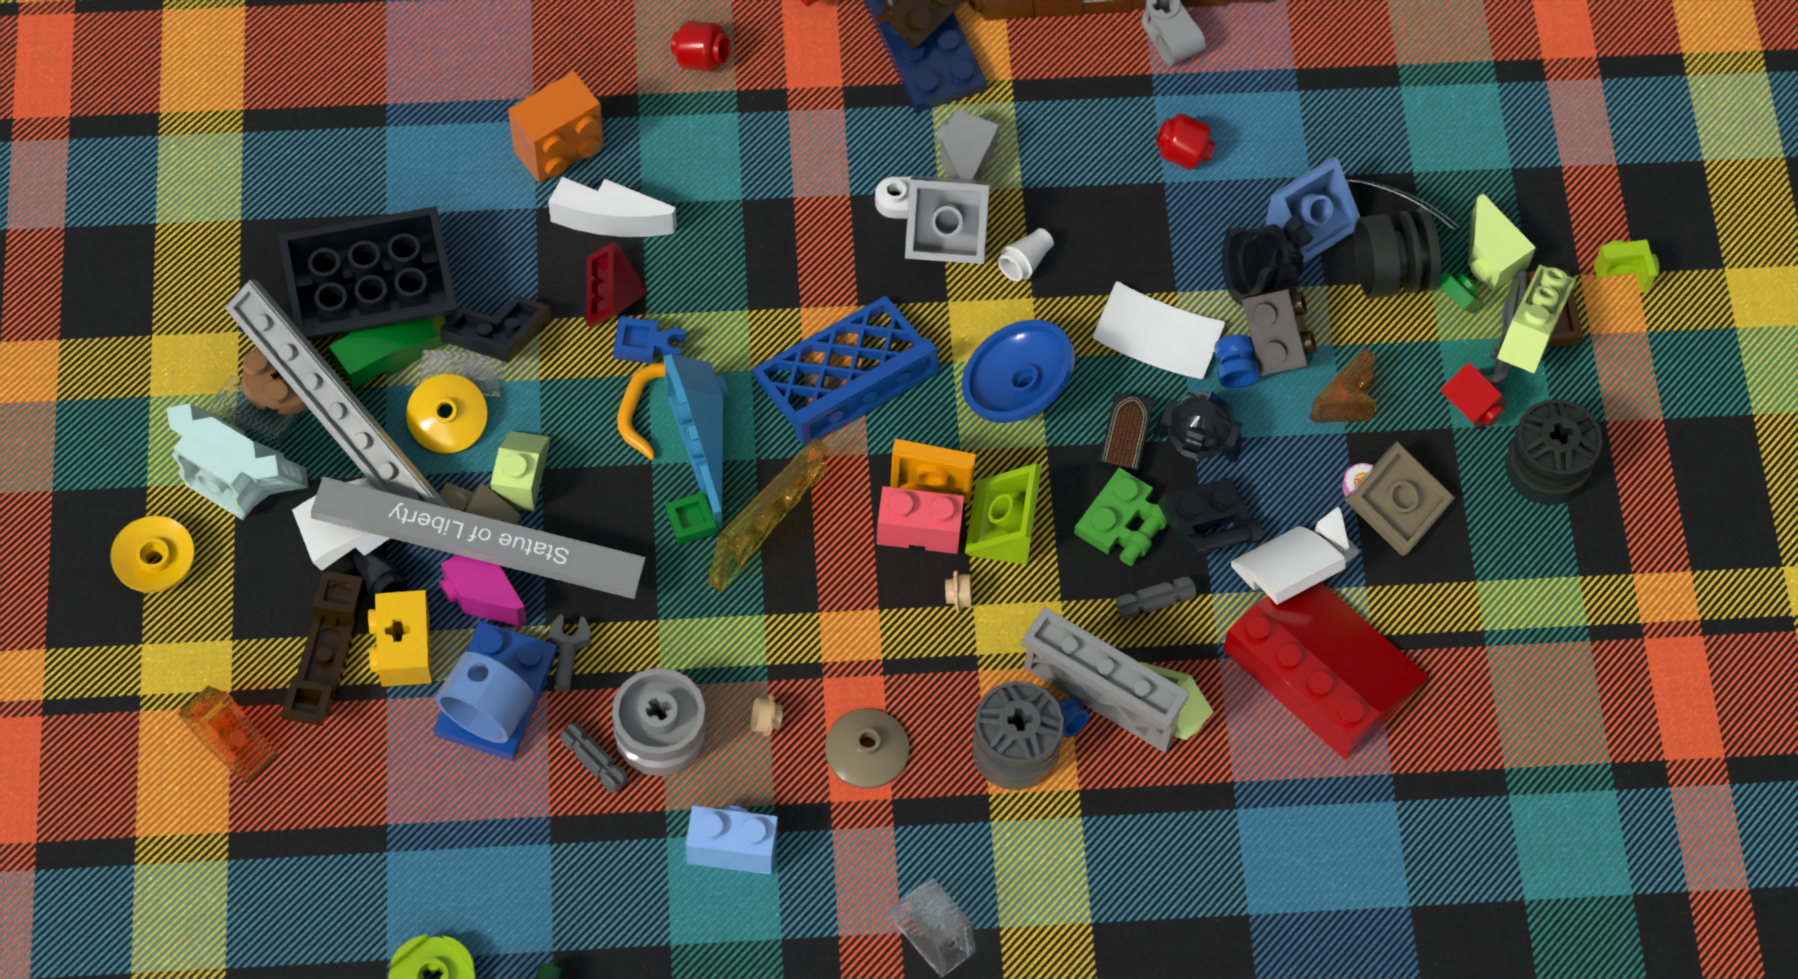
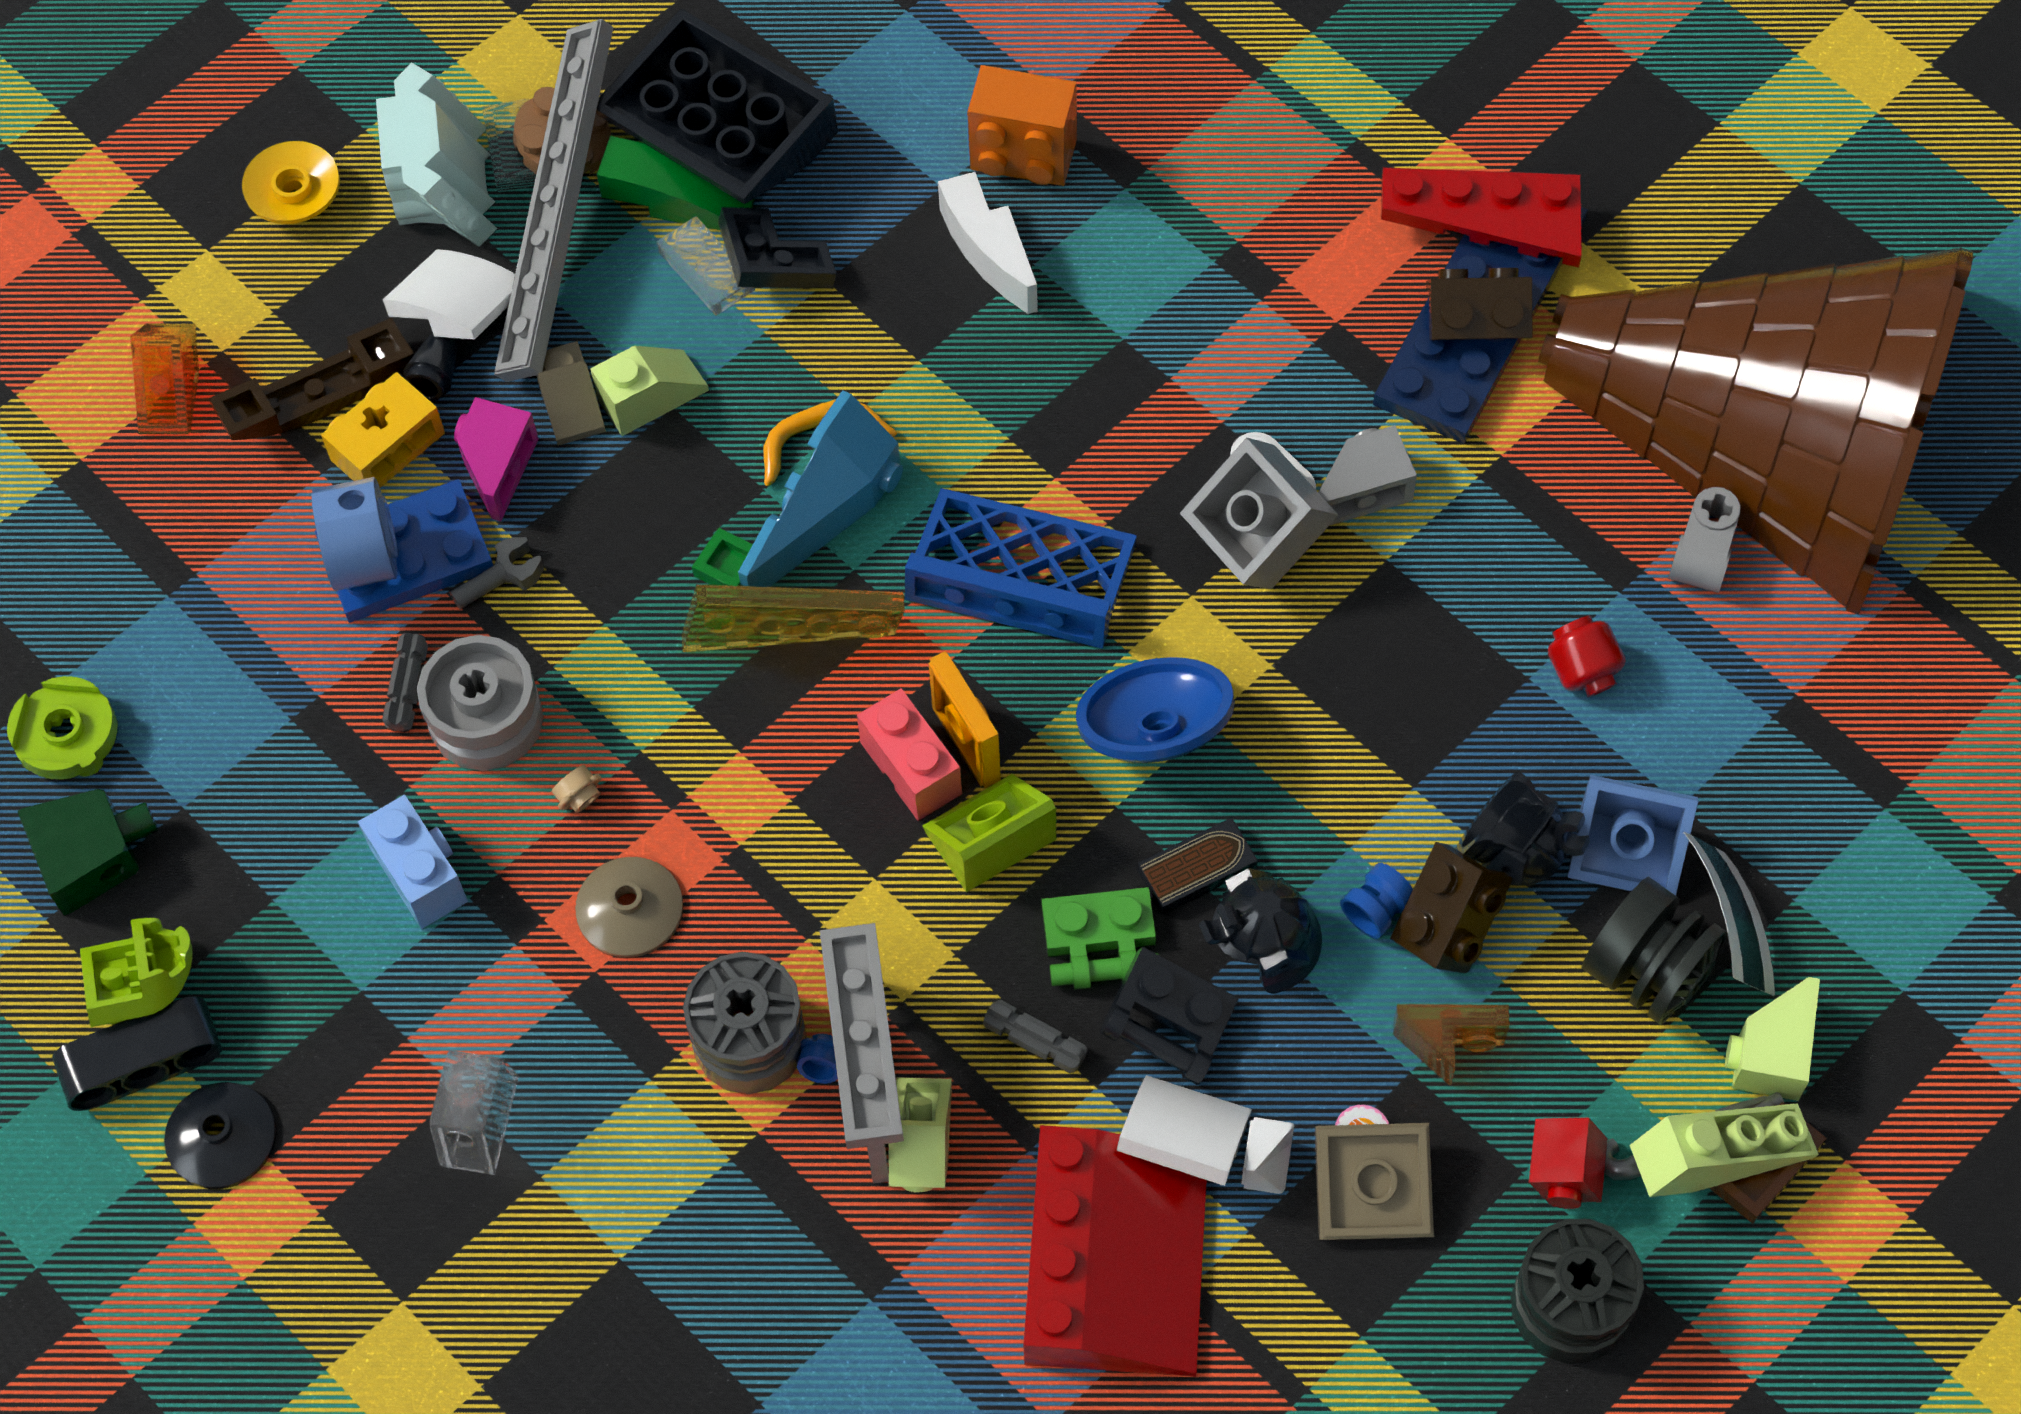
camera: 55 degrees right, 0 degrees up
(451, 433) = (661, 298): yellow dish -> none
(478, 537) = (525, 406): light grey tile -> none
(610, 284) = (916, 308): dark red slope -> none
(640, 340) = (881, 375): blue plate -> none
(700, 46) = (1243, 171): red head -> none
(959, 591) = (870, 852): tan plate -> none
(1024, 255) = (1305, 617): white cone -> none
(1158, 332) = (1345, 804): white sticker -> none
(1462, 291) = (1684, 1052): green plate -> none
(1628, 258) = (1904, 1187): lime bracket -> none

